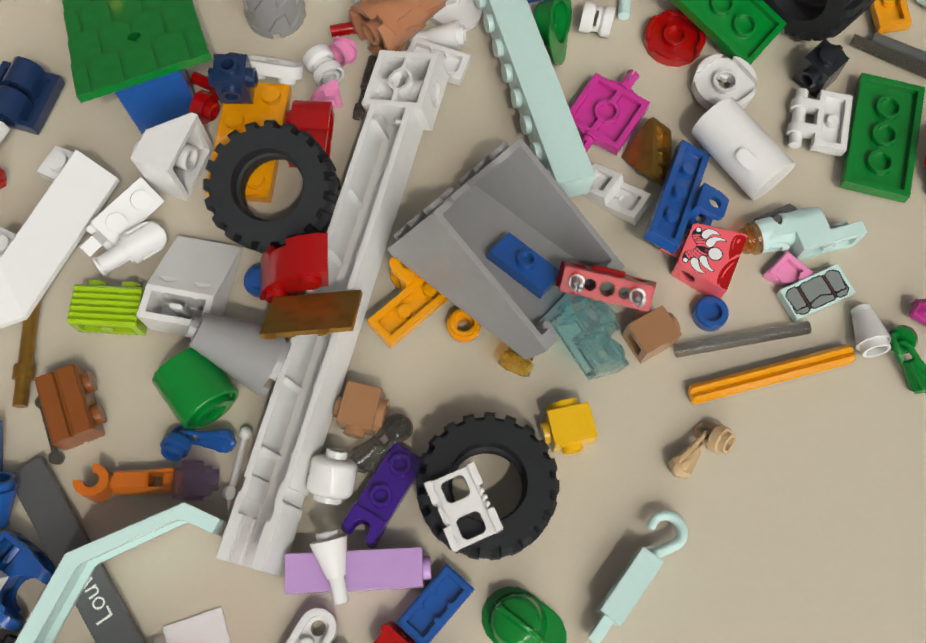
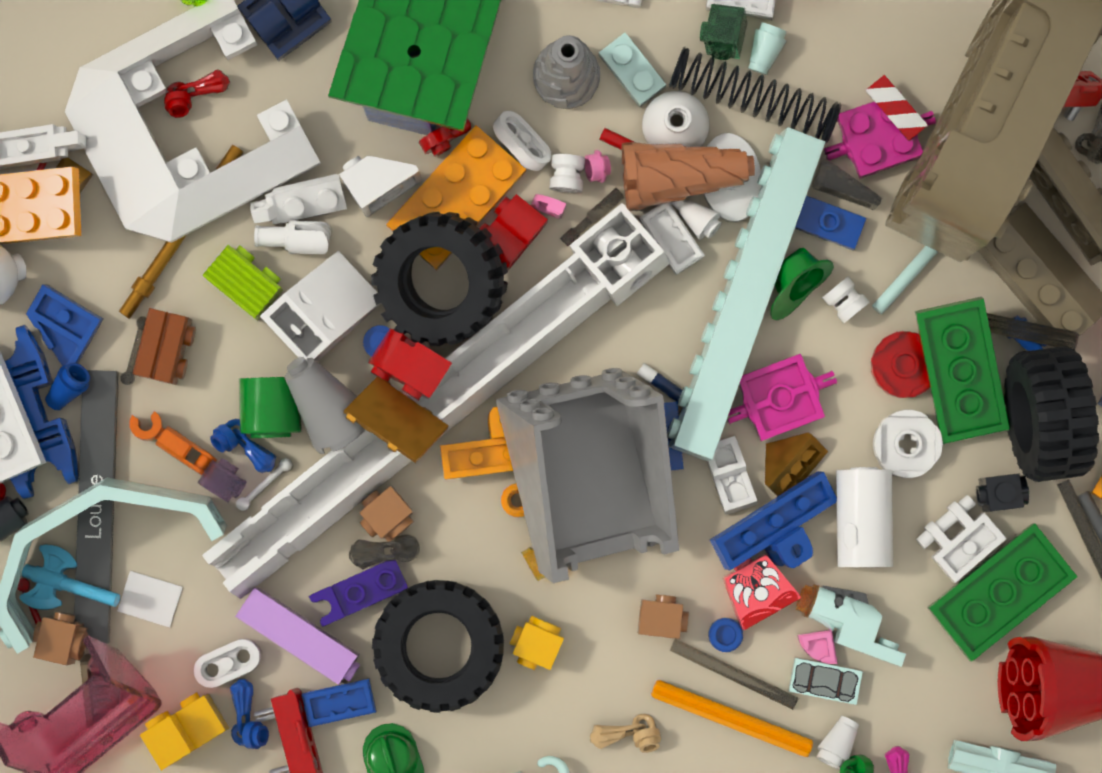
camera: 30 degrees right, 15 degrees up
(233, 78) = (480, 153): dark blue brick -> none
(331, 476) = (327, 552): white head -> none
(331, 555) = (287, 614): white cone -> none
(475, 502) = (413, 655): white piece -> none
(523, 265) = (599, 489): blue plate -> none
(572, 280) = (647, 558): piece -> none
(587, 335) = (605, 589): clear light blue plate -> none

